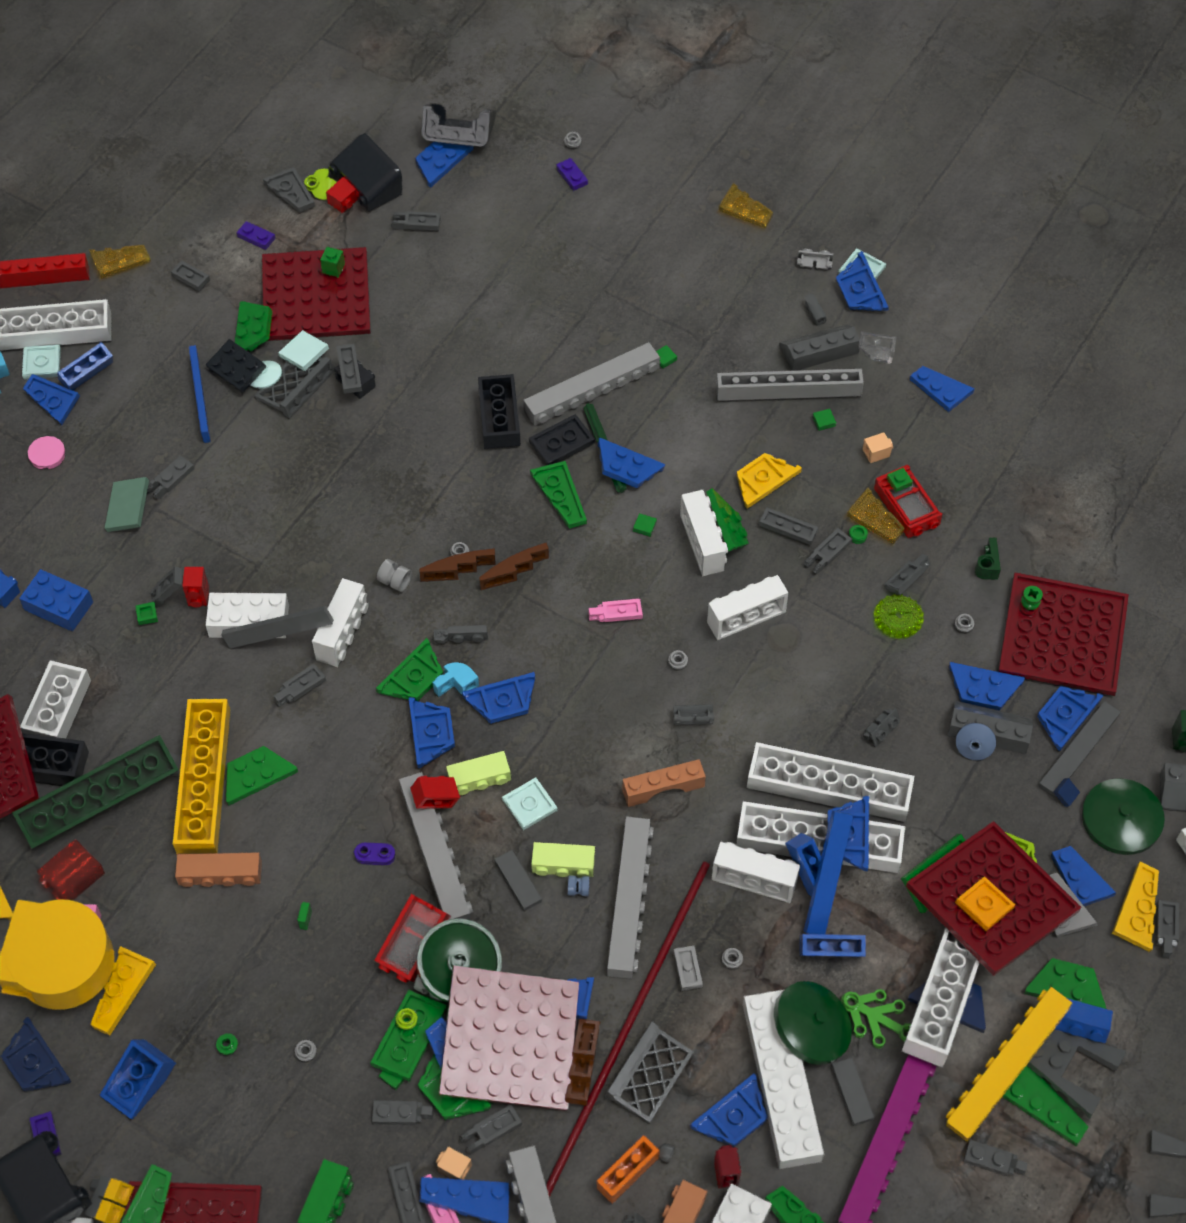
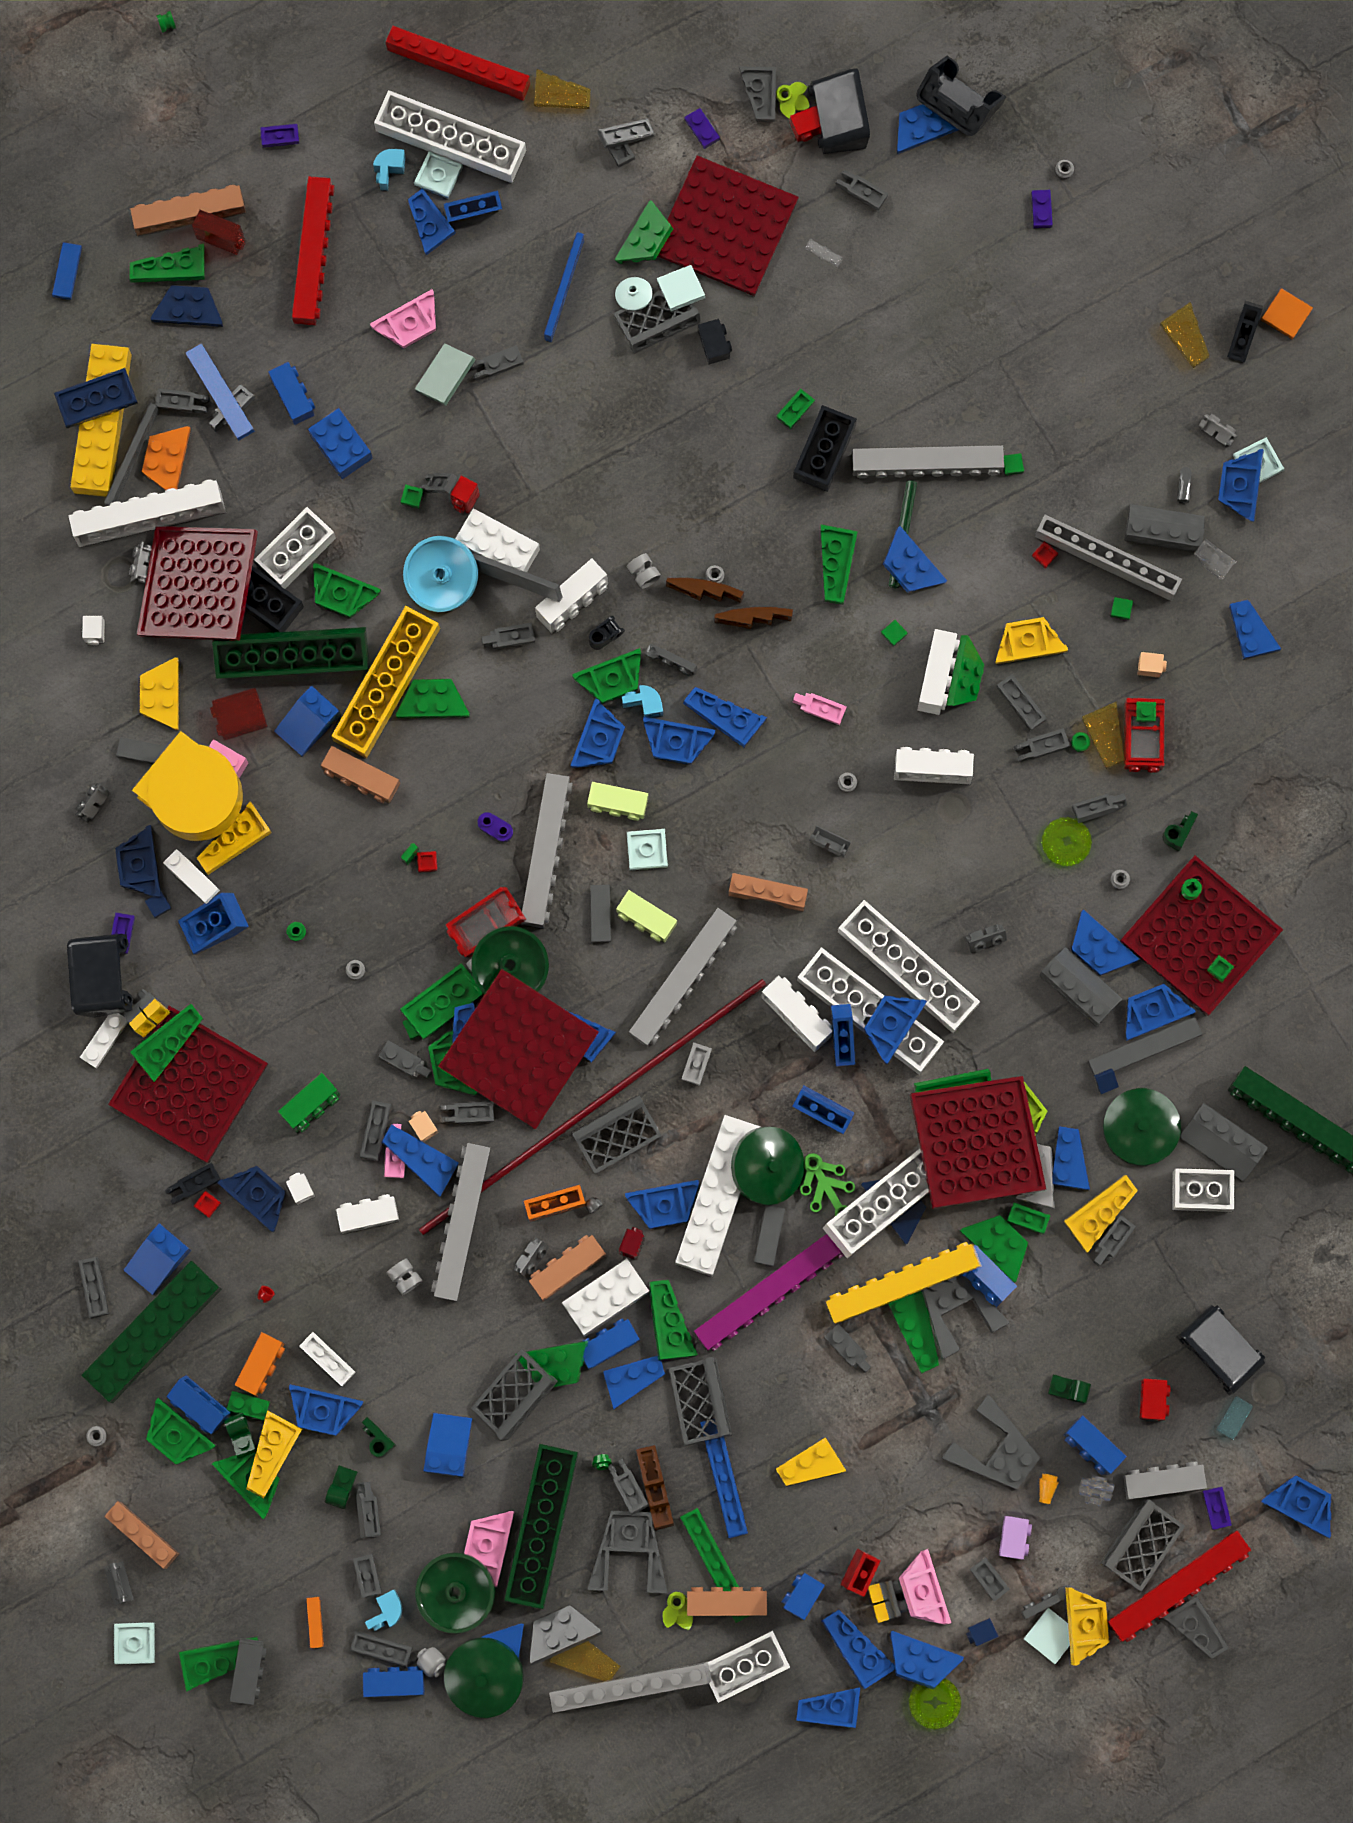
camera: 30 degrees right, 20 degrees up
(46, 452) = (399, 279): bright pink tile -> none
(71, 480) = (409, 321): none -> bright pink wing
(71, 1091) = (158, 905): none -> dark blue tile
(92, 1042) = (191, 876): none -> white slope
(120, 721) = (341, 592): none -> green wing
(142, 846) = (307, 721): none -> blue slope
(192, 261) = (626, 133): none -> tile
(207, 661) = (440, 574): none -> medium azure dish
(236, 365) = (611, 273): black plate -> none
(325, 916) = (427, 861): none -> red tile
(332, 261) = (754, 204): green brick -> none
(349, 368) = (709, 335): dark grey plate -> none
(387, 639) = (608, 631): none -> black piece
(404, 1013) = (446, 982): lime plate -> none
(411, 276) = (823, 253): none -> clear pin
(435, 792) = (568, 802): red brick -> none
(455, 396) = (795, 408): none -> green plate
(544, 659) = (730, 719): none -> blue wing
(562, 440) = (867, 507): black plate -> none
(583, 887) = (650, 948): sand blue wheel -> none
(583, 1062) = (569, 1096): reddish brown slope -> none
(732, 952) = (733, 1070): light grey plate -> none
(734, 409) = (1045, 554): none -> red tile
(789, 183) = (1245, 331): none -> black slope
(813, 161) = (1287, 313): none -> orange tile
(828, 873) = (852, 1049): blue tile -> none
(975, 733) = (1055, 996): sand blue dish -> none
(985, 903) = (964, 1145): light orange tile -> none
(1079, 947) = (1028, 1218): none -> green plate
(1099, 649) = (1220, 968): none -> green tile

